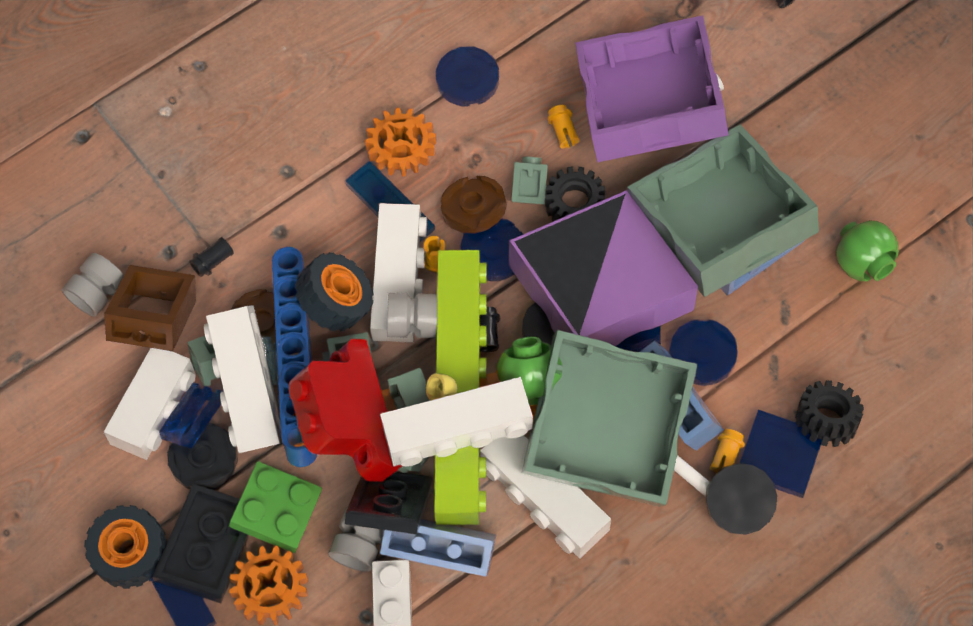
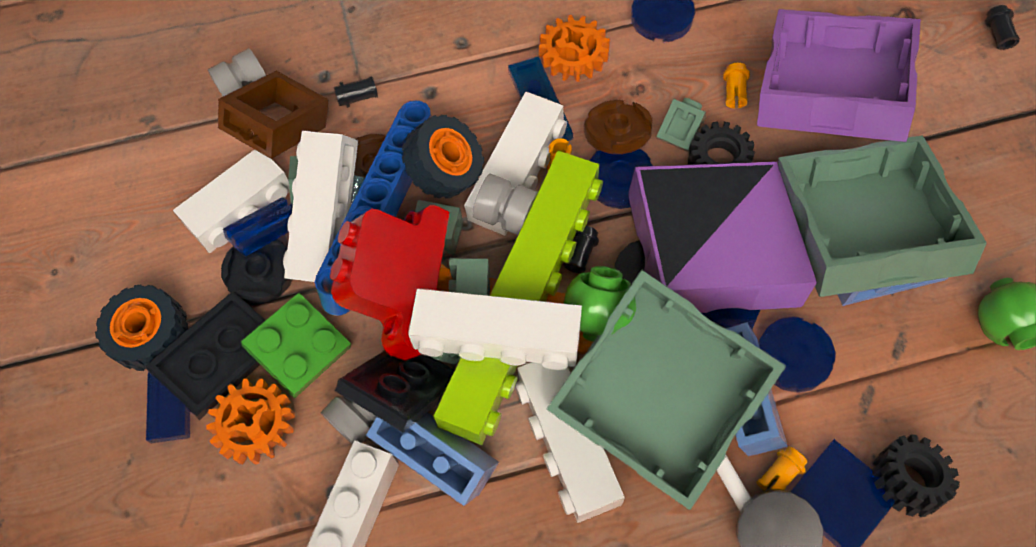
camera: 25 degrees right, 0 degrees up
(434, 388) = (497, 284): light yellow hinge -> none

